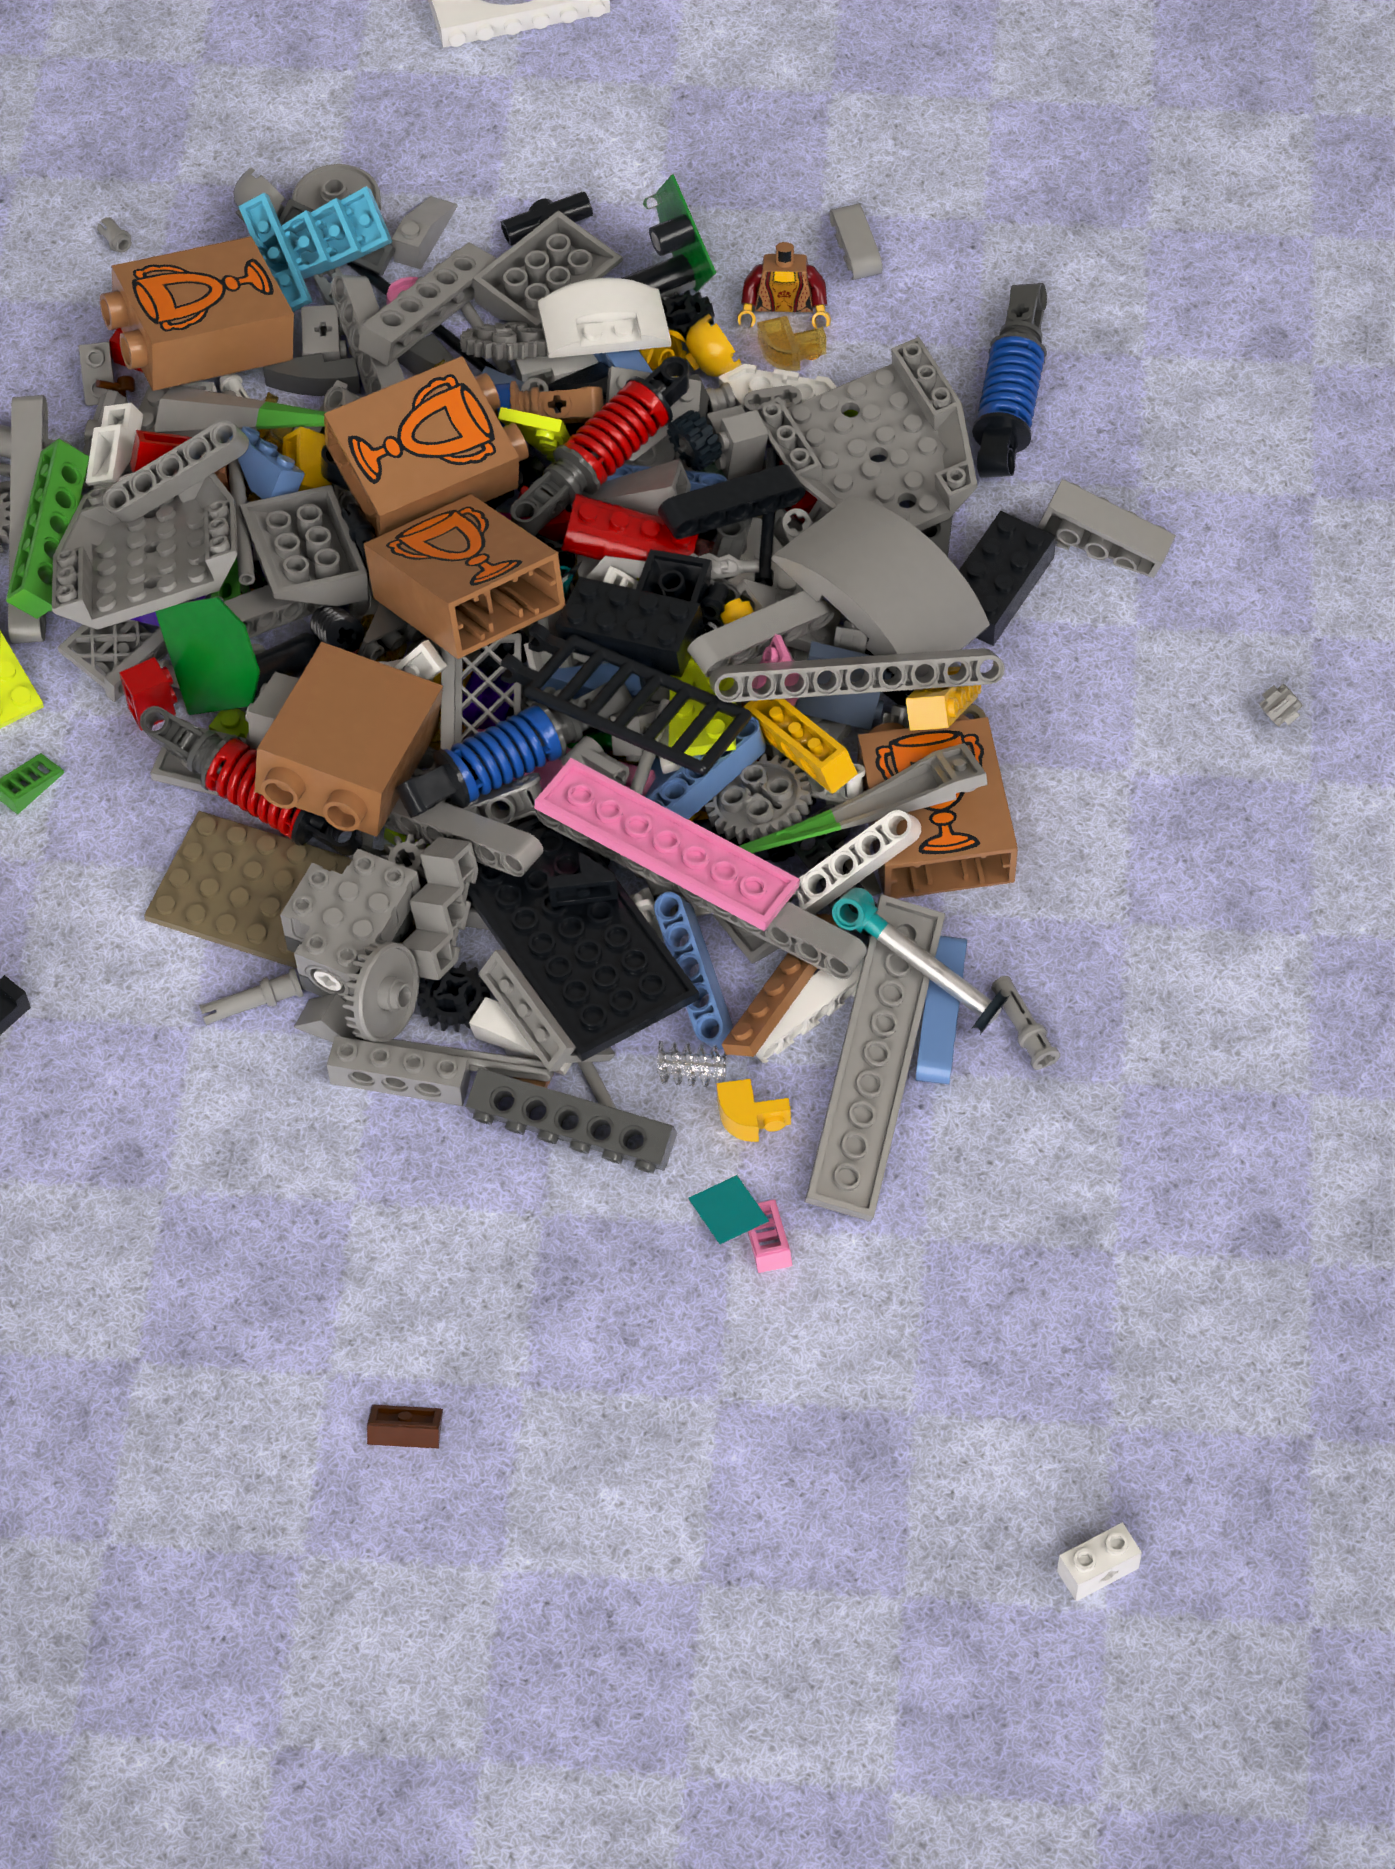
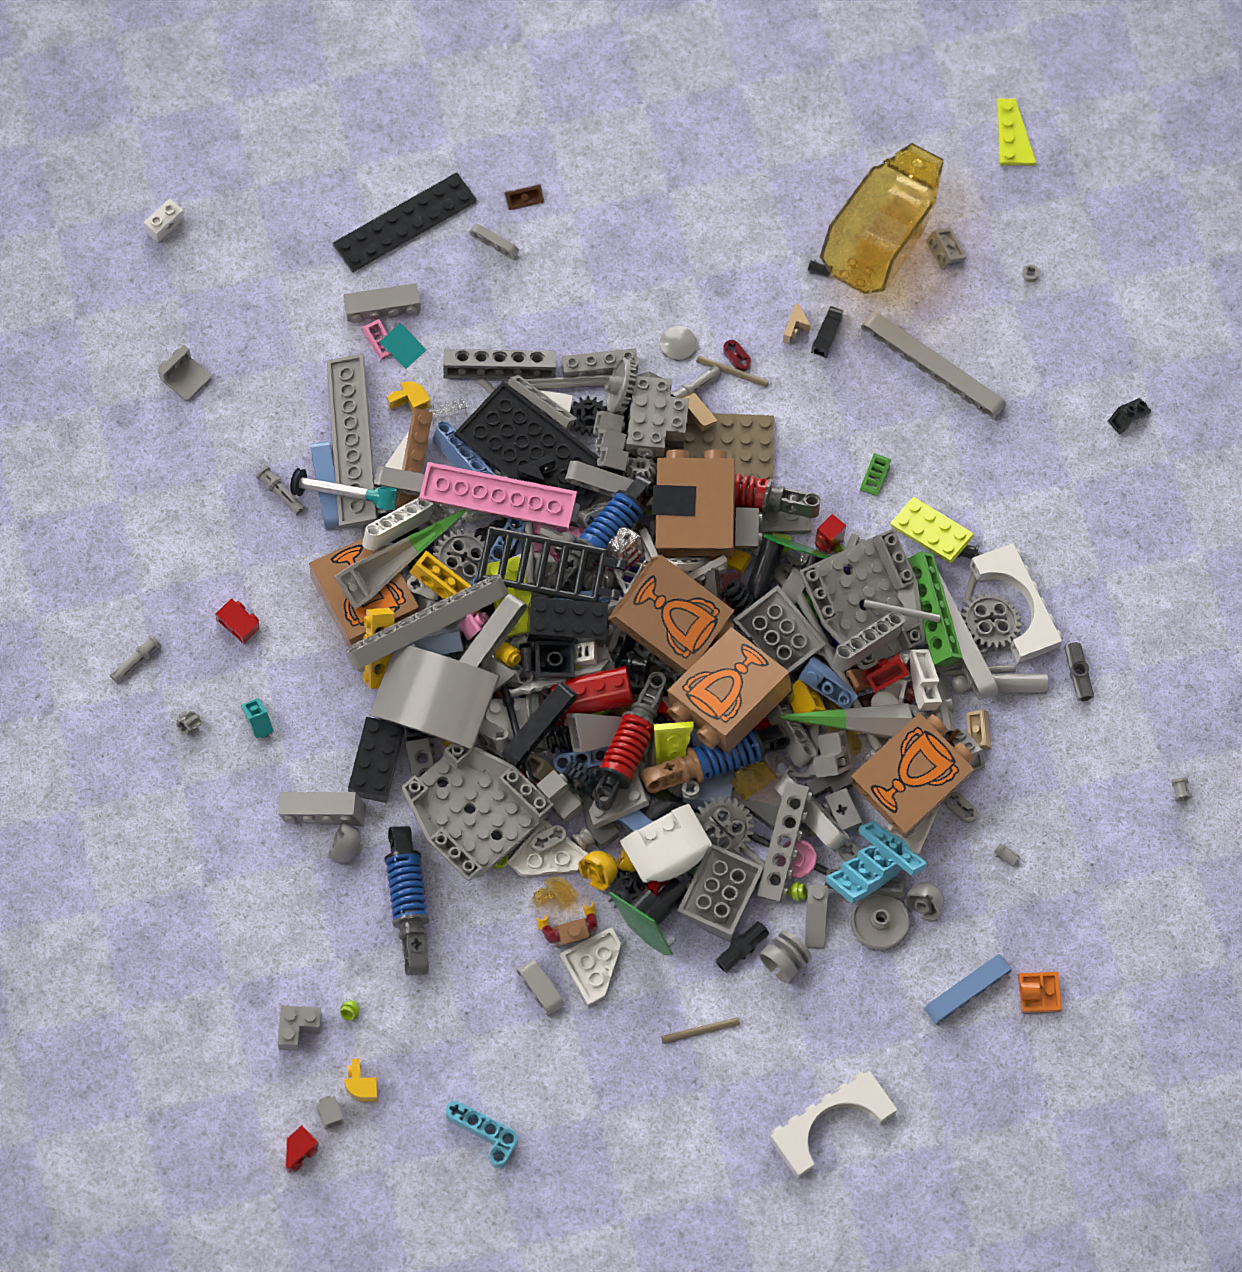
camera: 155 degrees right, 10 degrees up
(33, 1053) = (797, 321): none -> tan slope
(66, 397) = (979, 727): none -> tan slope
(100, 513) = (904, 611): none -> light grey bar
(161, 71) = (1039, 992): none -> orange plate
(164, 1030) = (740, 352): none -> dark red beam
(177, 1011) = (733, 371): none -> dark tan bar
(247, 1081) = (678, 343): none -> light grey dish
(256, 94) = (967, 988): none -> medium blue beam
(267, 941) = (700, 413): none -> tan slope
(307, 379) = (835, 754): none -> light grey brick
(383, 730) = (674, 500): none -> black sticker
(432, 259) = (797, 891): none -> lime plate
(488, 707) = (625, 546): none -> clear torso
(492, 177) = (787, 954): none -> light grey wheel
(492, 1343) = (496, 241): none -> light grey beam
(642, 1439) = (404, 222): none -> black plate
(649, 146) = (700, 1030): none -> dark tan bar
(739, 1290) = (382, 302): none -> light grey brick
(776, 226) = (593, 964): none -> white plate
(981, 89) = (479, 1130): none -> medium azure beam
(1088, 468) = (345, 844): none -> light grey cylinder
(1137, 1264) = (183, 374): none -> light grey bracket
(1141, 283) = (349, 1010): none -> lime plate
(1157, 188) = (360, 1088): none -> yellow brick
(1157, 834) = (238, 620): none -> red brick
(1168, 688) = (257, 718): none -> teal slope
(1210, 170) = (329, 1112): none -> light grey brick
(1225, 282) = (296, 1020): none -> light grey brick
(1265, 143) = (298, 1148): none -> red slope
(1330, 831) = (142, 653): none -> light grey pin

